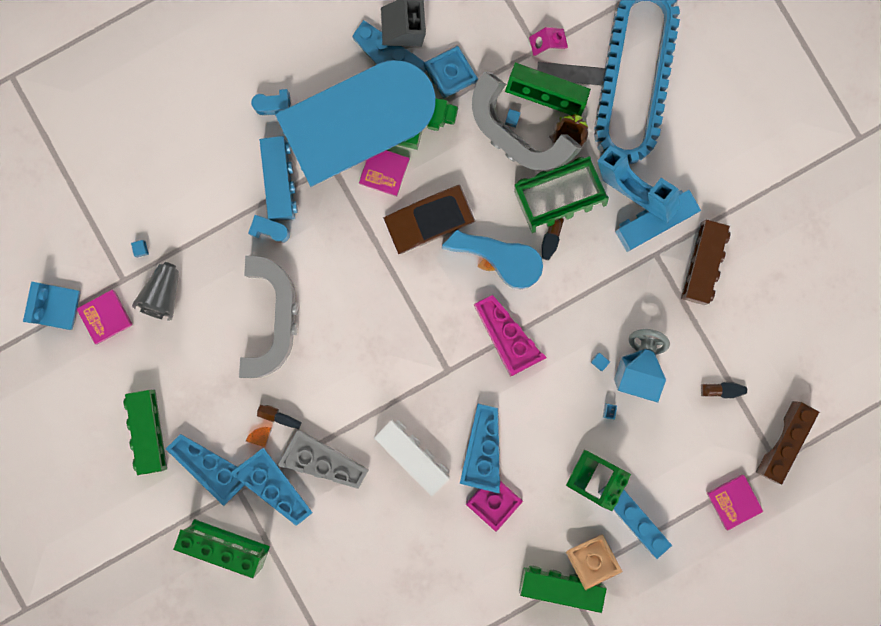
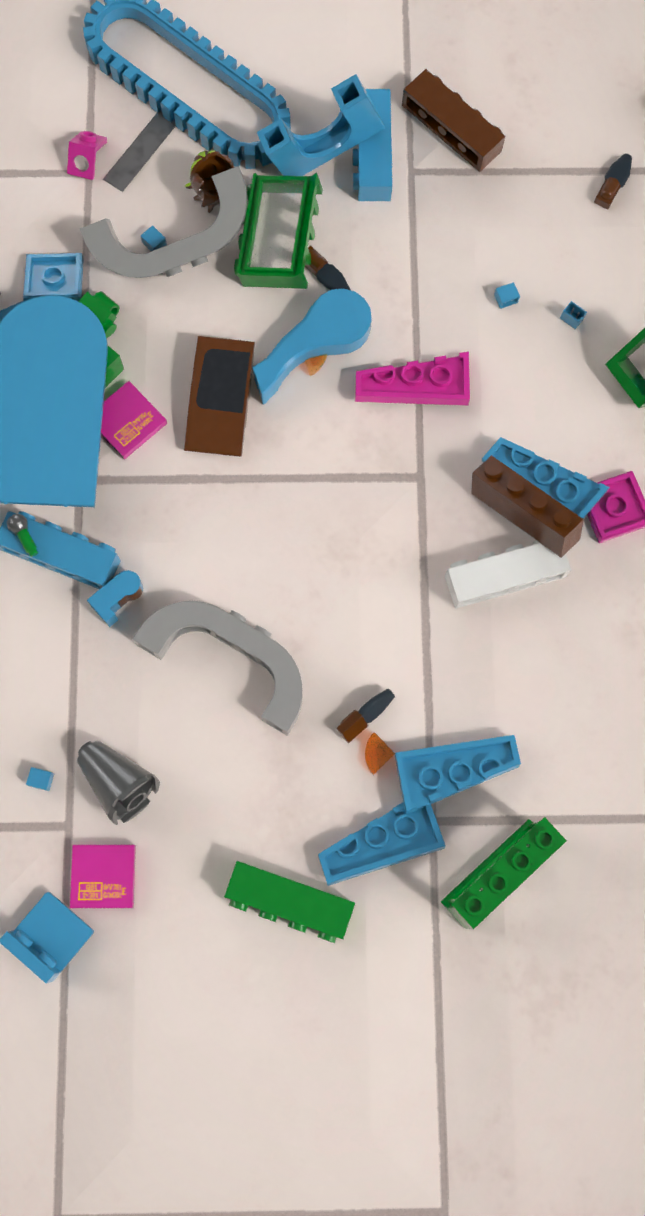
camera: 65 degrees left, 10 degrees down
(275, 148) = (19, 526): none -> piece
(315, 458) = (448, 692): light grey wing -> none
(456, 448) = (526, 506): none -> reddish brown brick
(547, 90) = (144, 180): green brick -> none
(640, 371) = (543, 243): dark azure piece -> none

